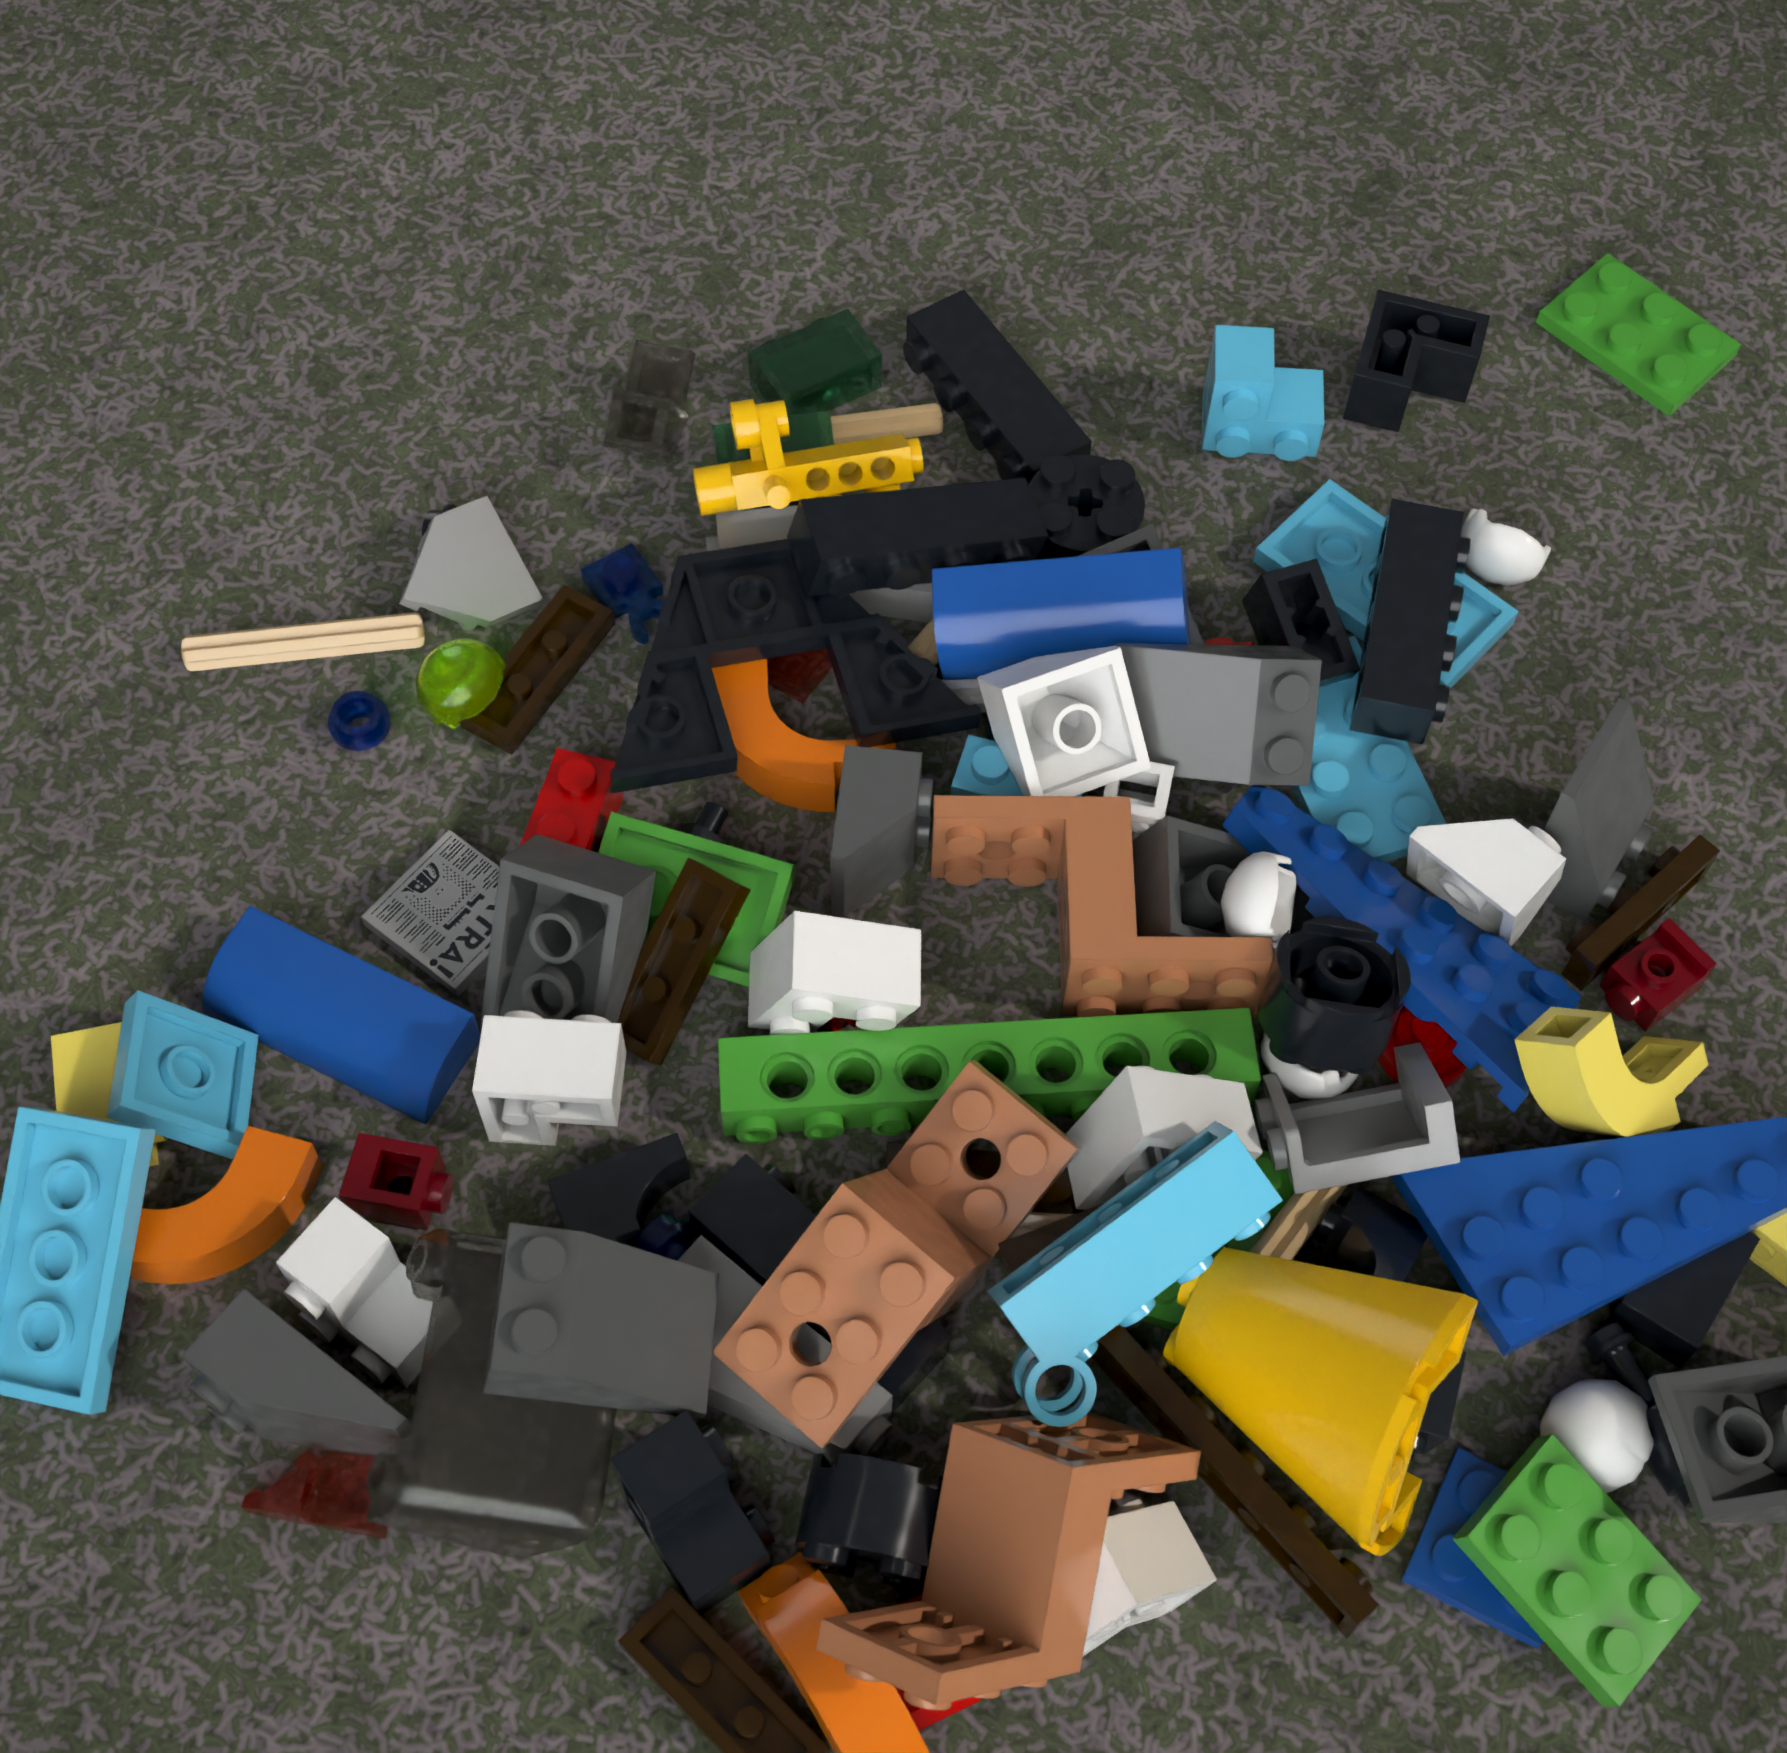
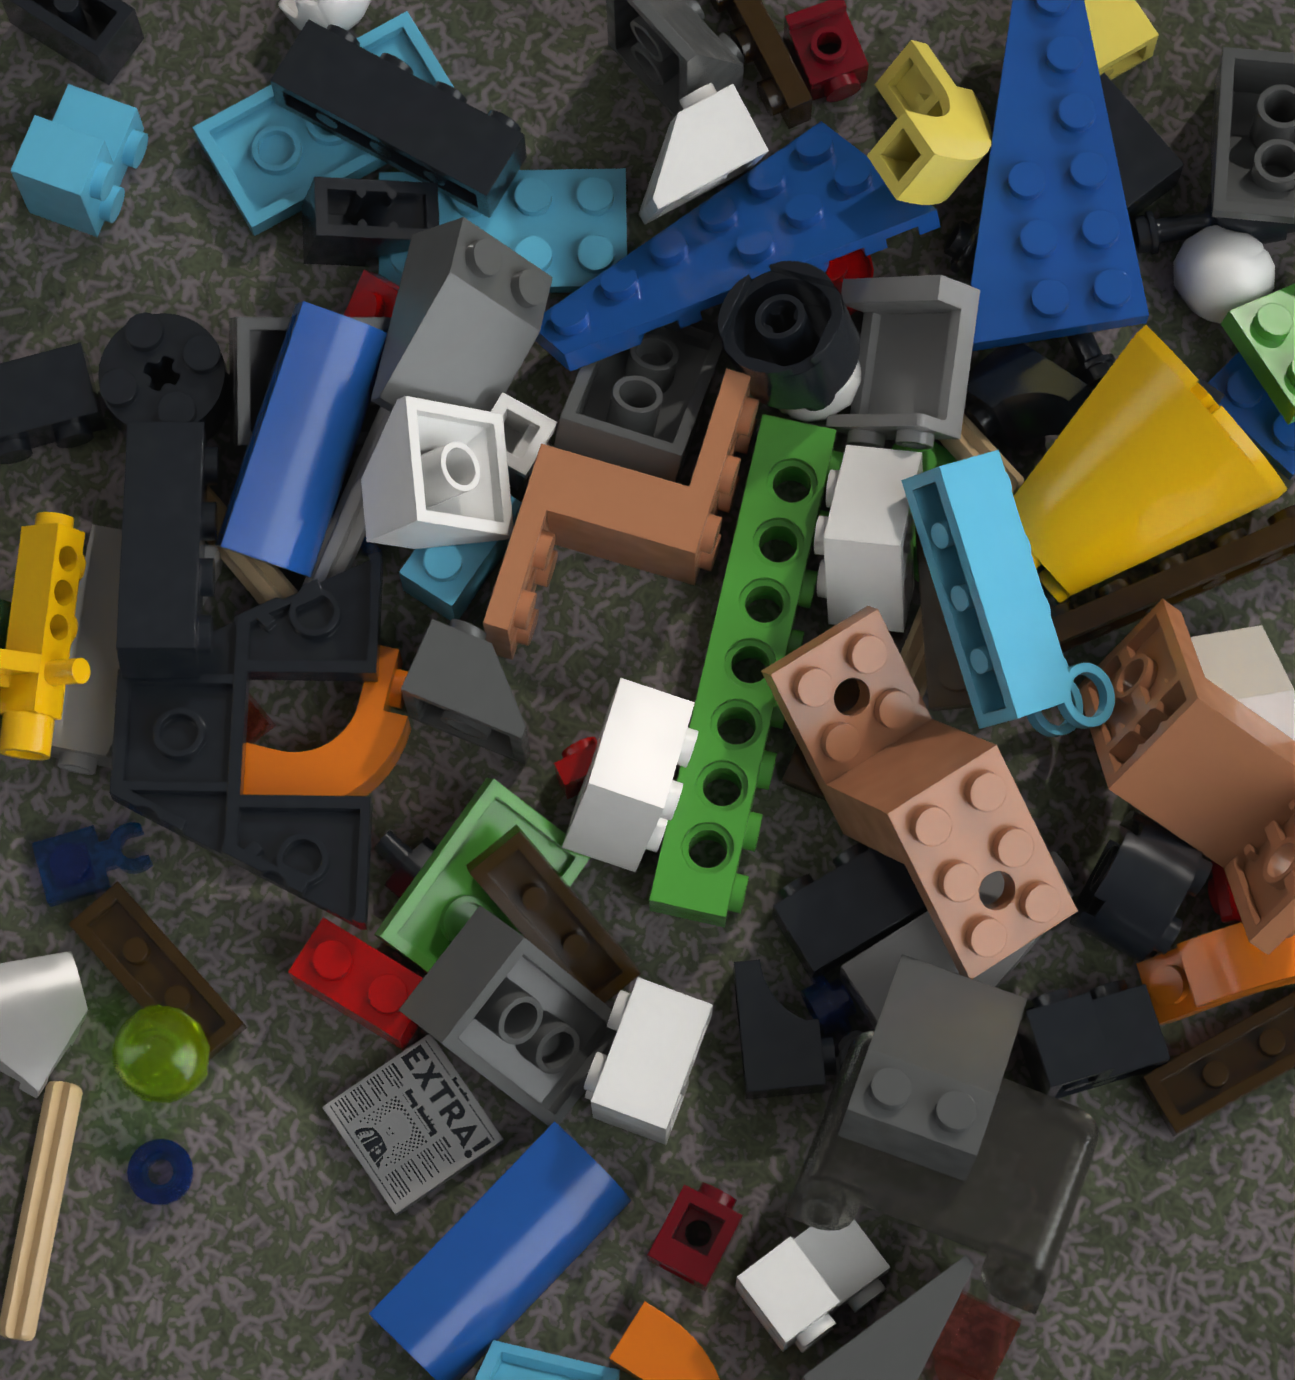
camera: 70 degrees left, 15 degrees up
(1259, 898) = (676, 369): white hair -> none

